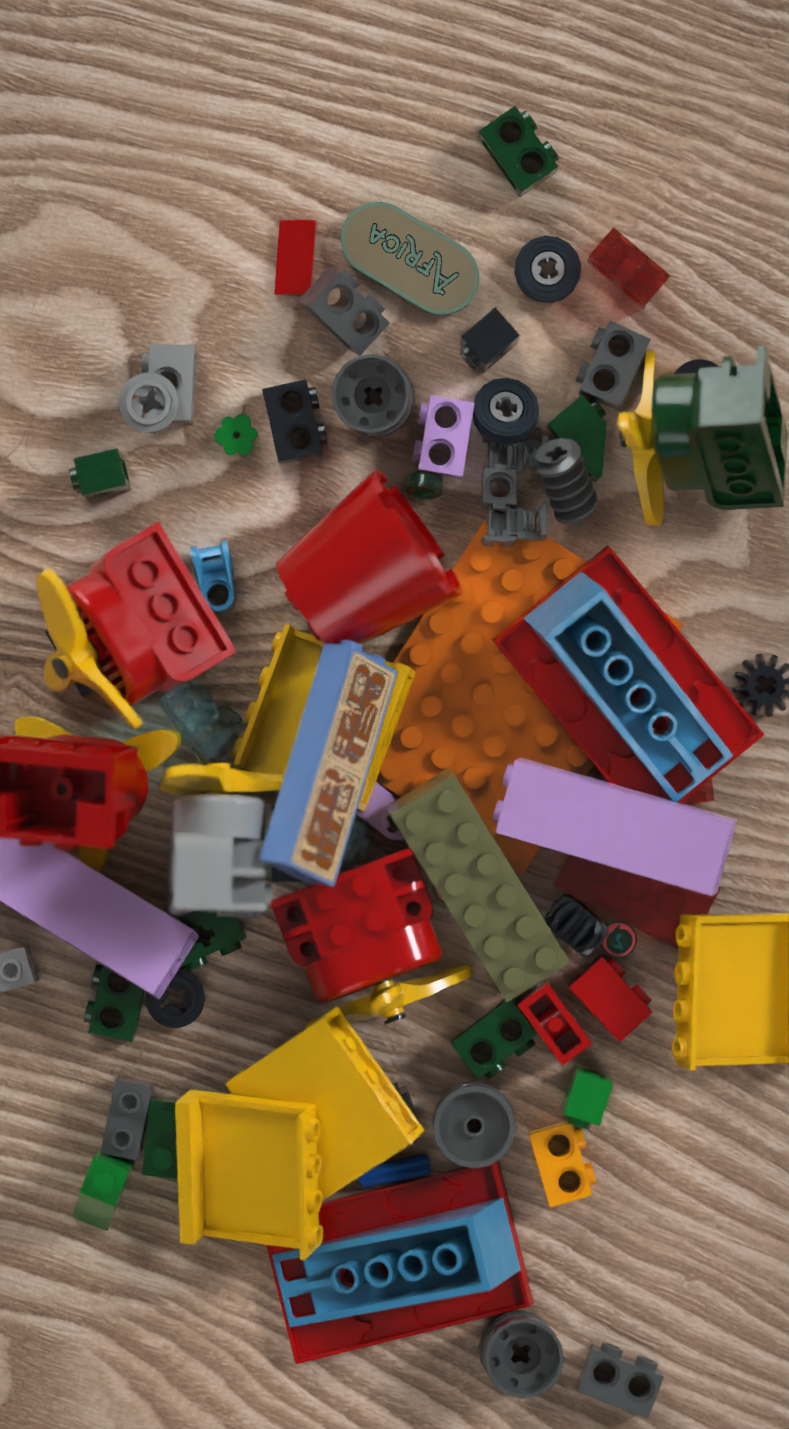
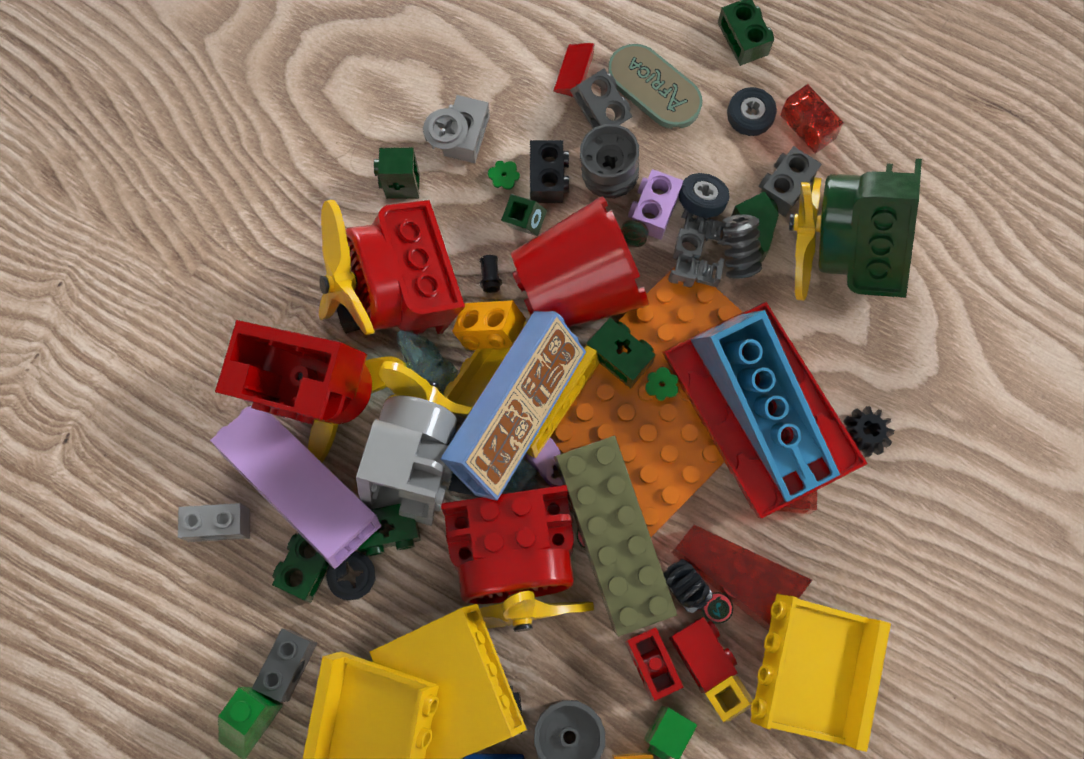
camera: 10 degrees right, 15 degrees down
(160, 1142) = (302, 694): dark green brick -> none
(214, 573) = (465, 261): dark azure piece -> none
(251, 579) = (490, 276): none -> black pin
(269, 657) = (489, 325): none -> light orange brick
(278, 495) = (524, 215): none -> dark green brick
(454, 674) = (625, 366): none -> dark green brick
(488, 341) = (702, 140): black brick -> none
(488, 1030) = (597, 659): dark green brick -> none
(510, 688) = (665, 377): none -> green plant
(614, 826) = (737, 508): lavender brick -> none
(649, 1042) = (730, 698): none -> yellow brick

